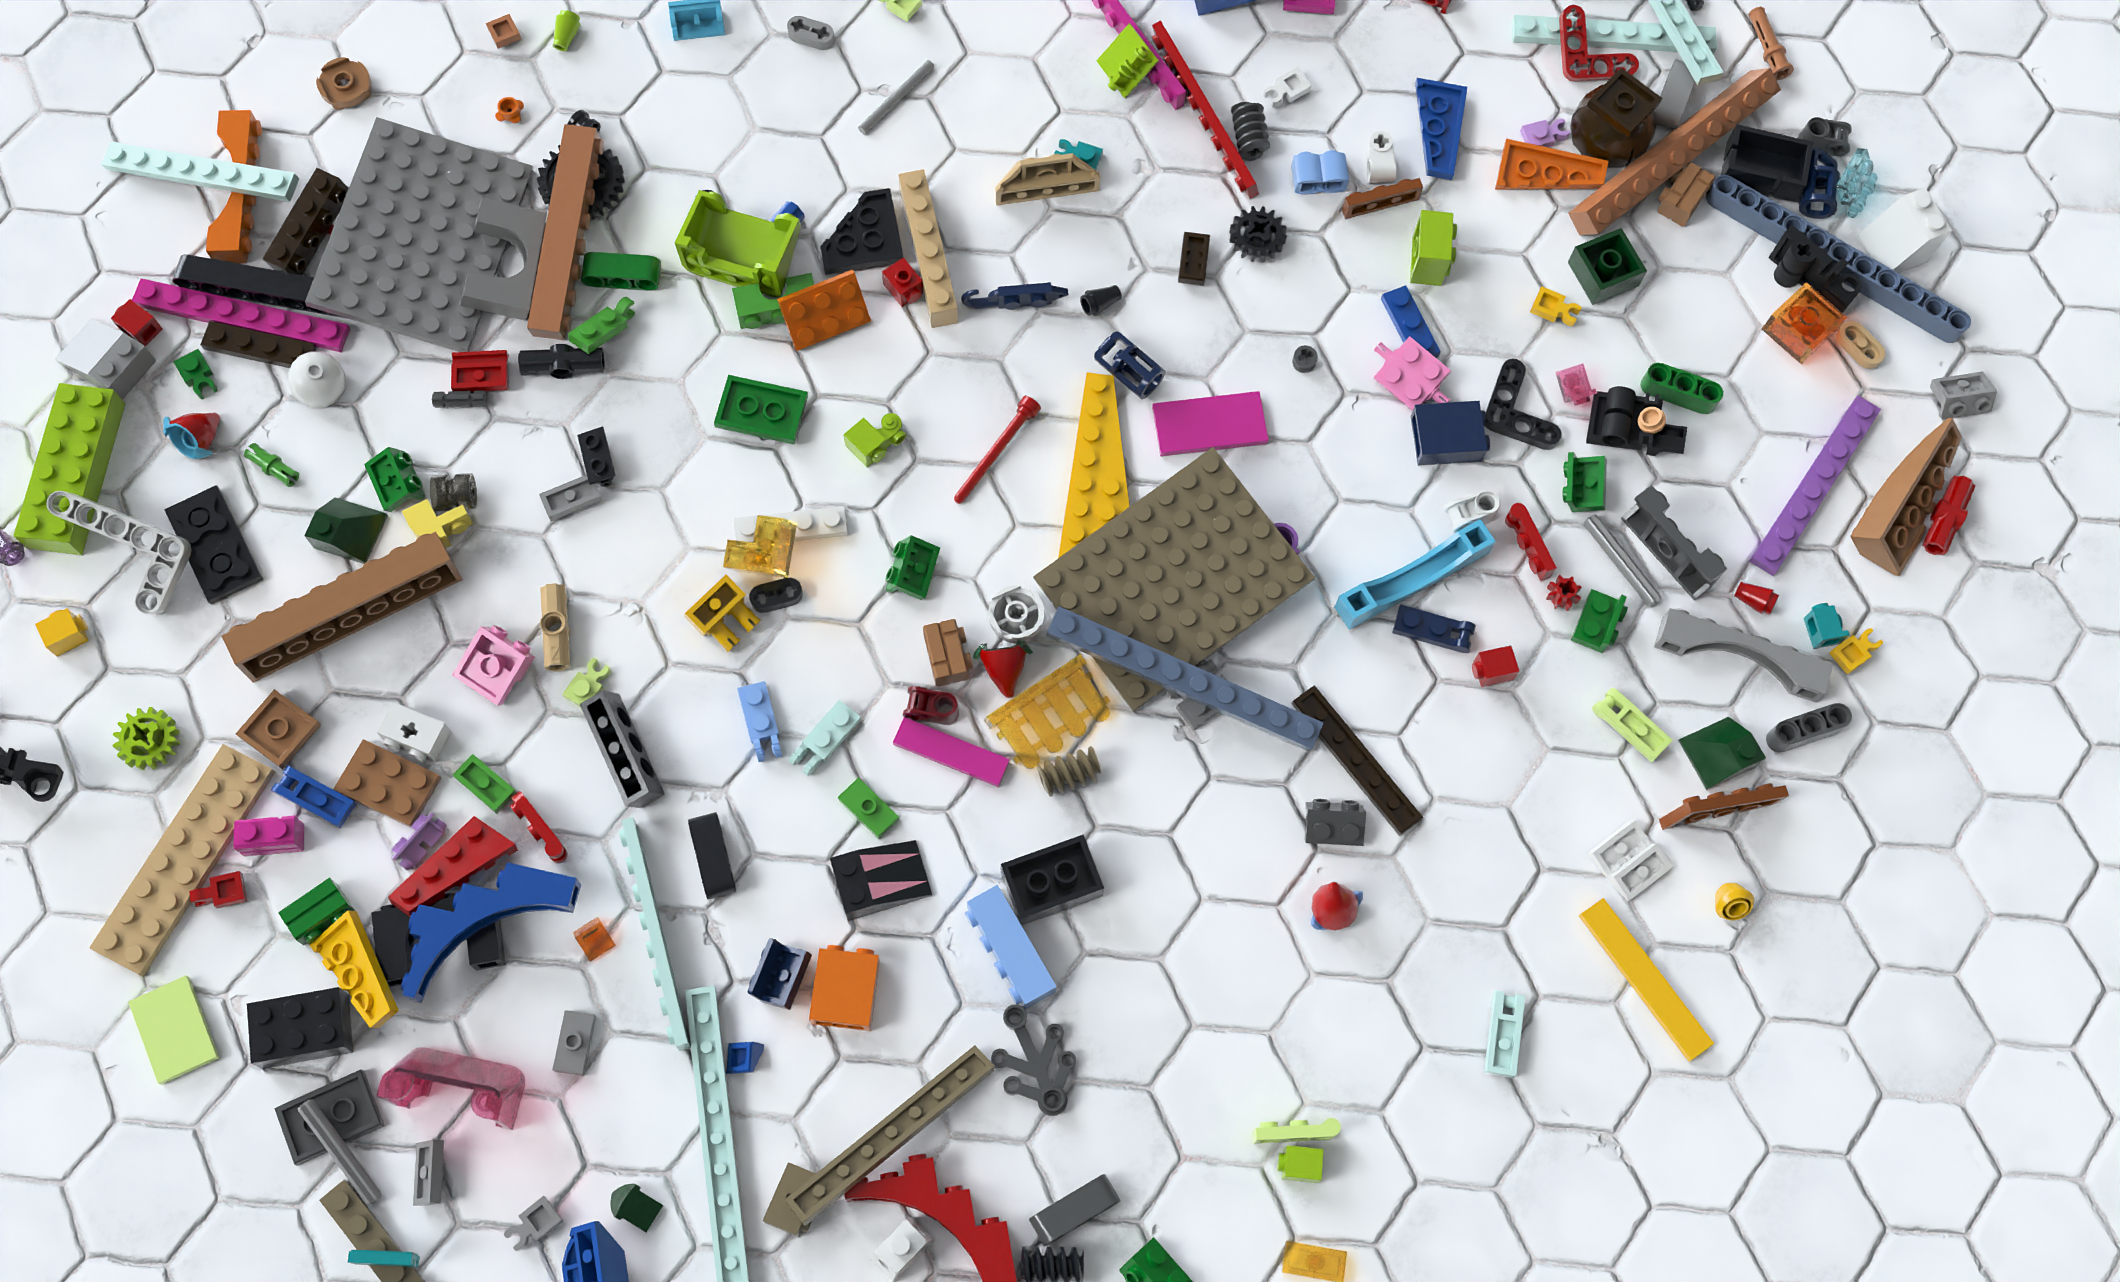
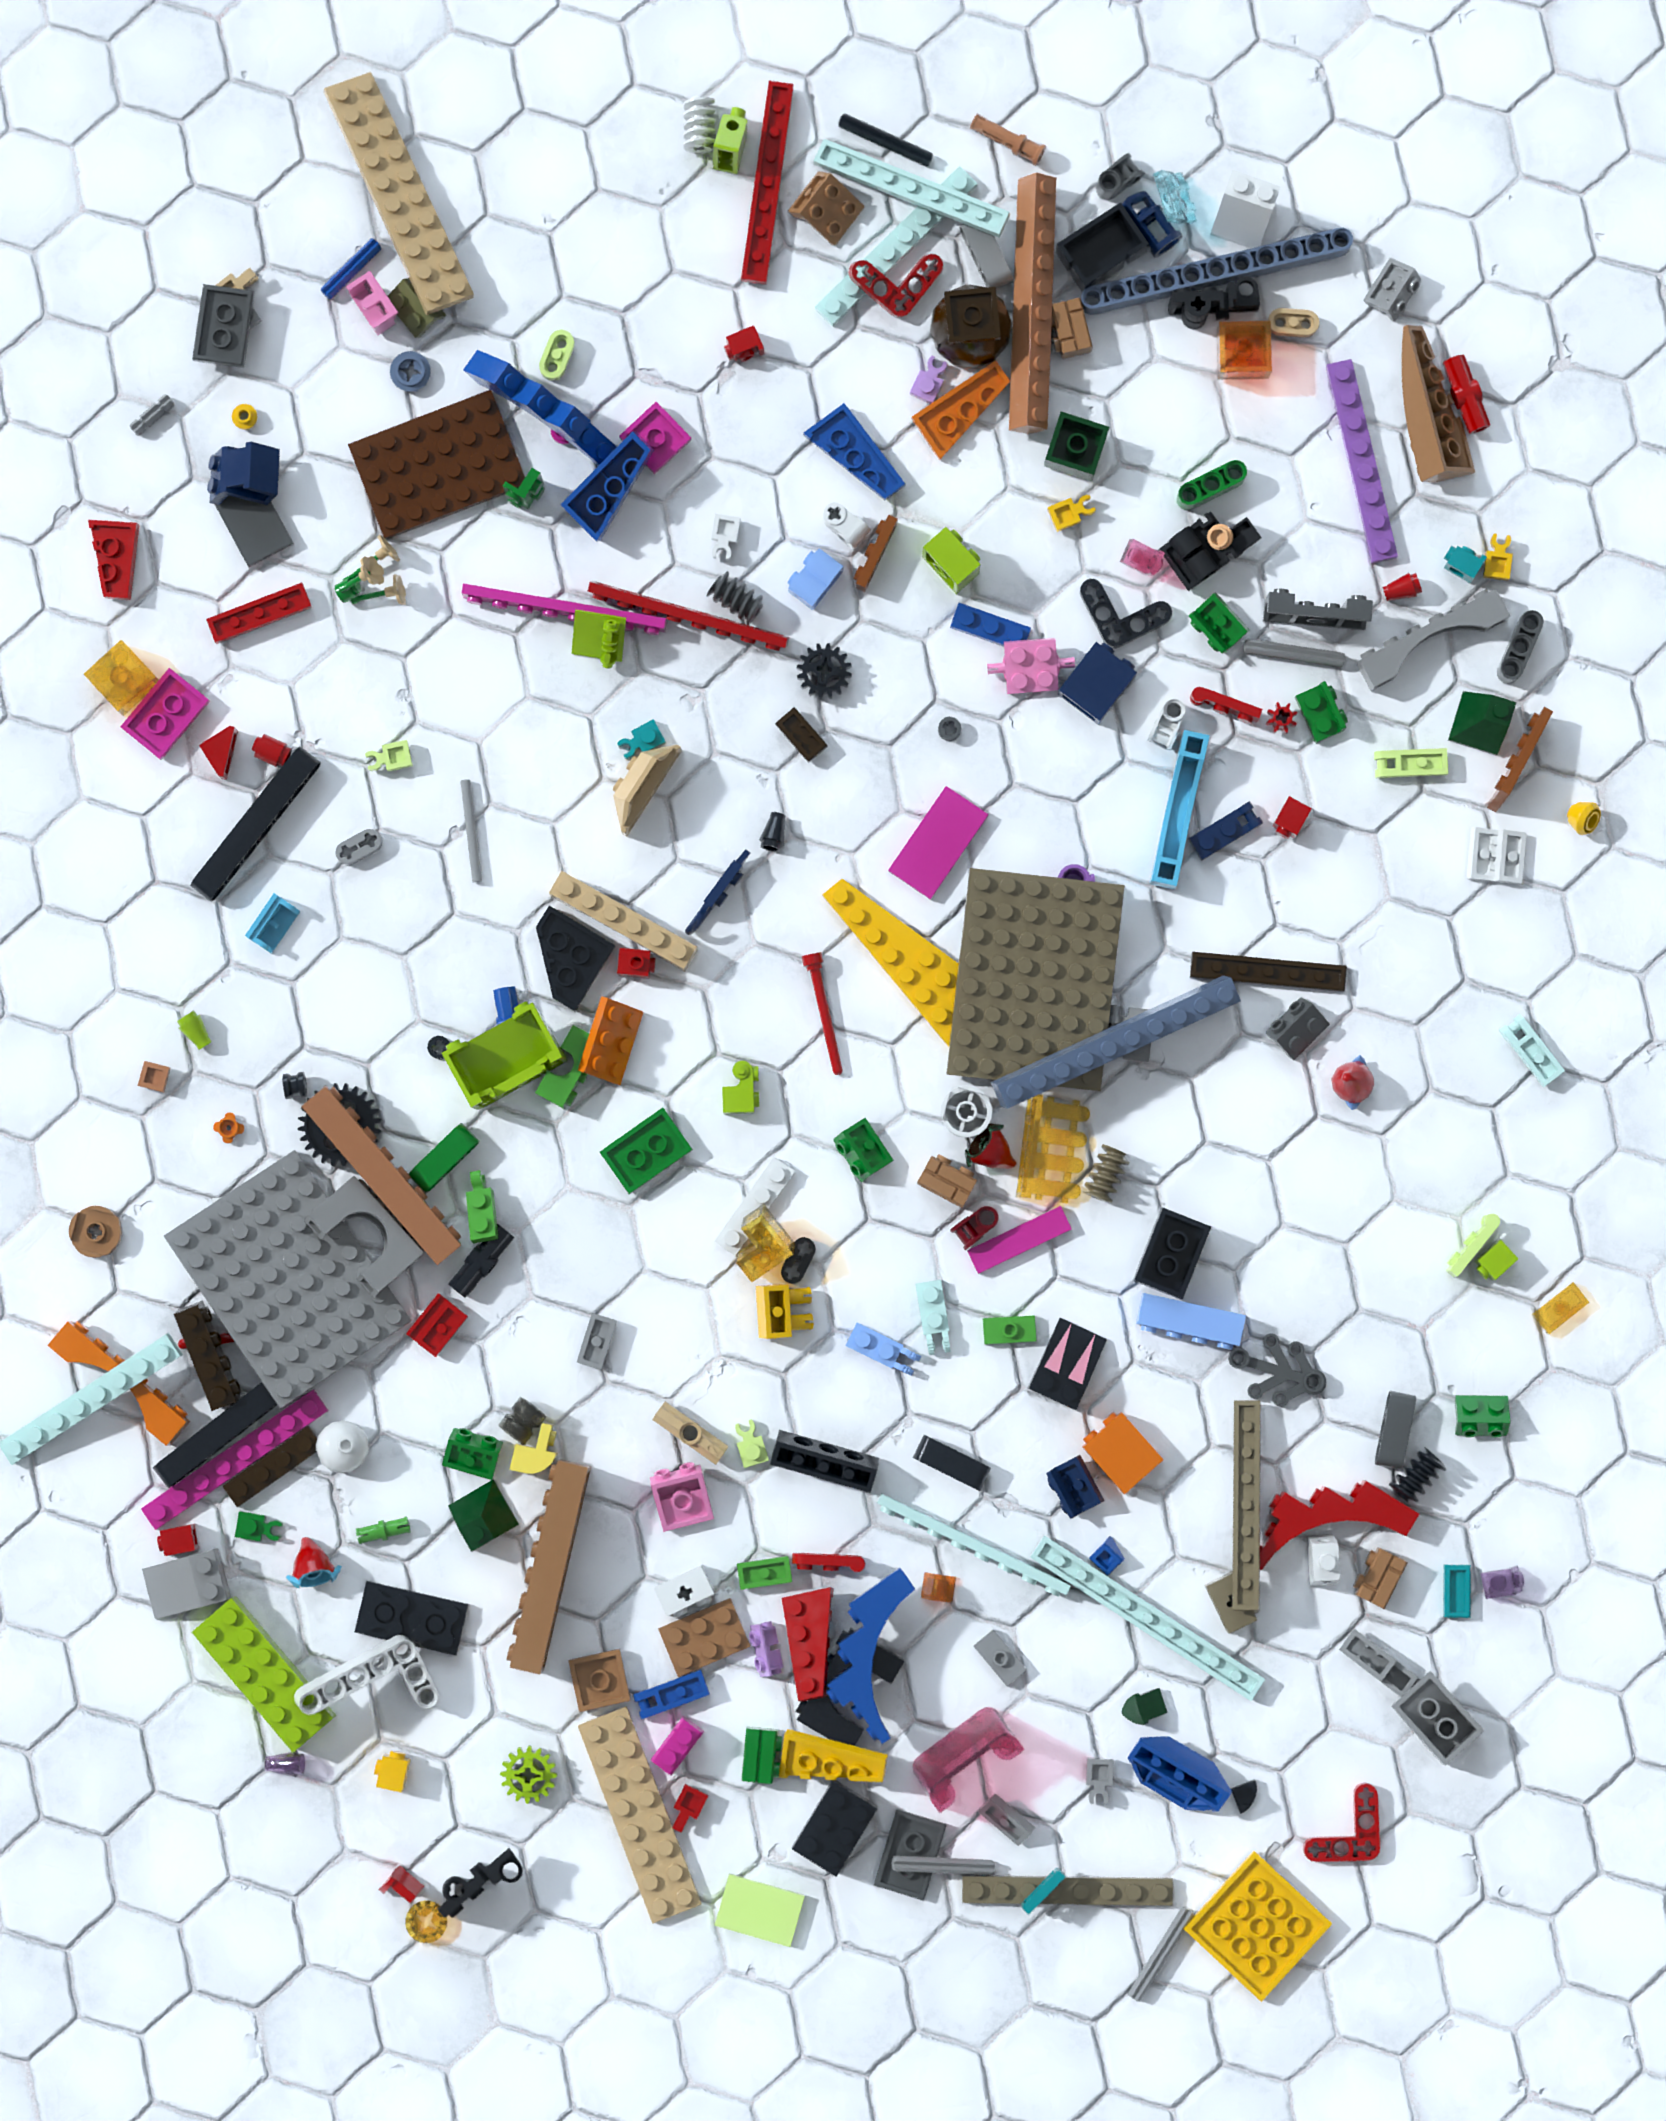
camera: 40 degrees left, 15 degrees up
(459, 399) = (446, 1357): dark grey axle -> none
(597, 457) = (583, 1298): black hinge -> none
(1126, 362) = (840, 861): dark blue piece -> none
(1646, 980) = (1579, 923): yellow tile -> none

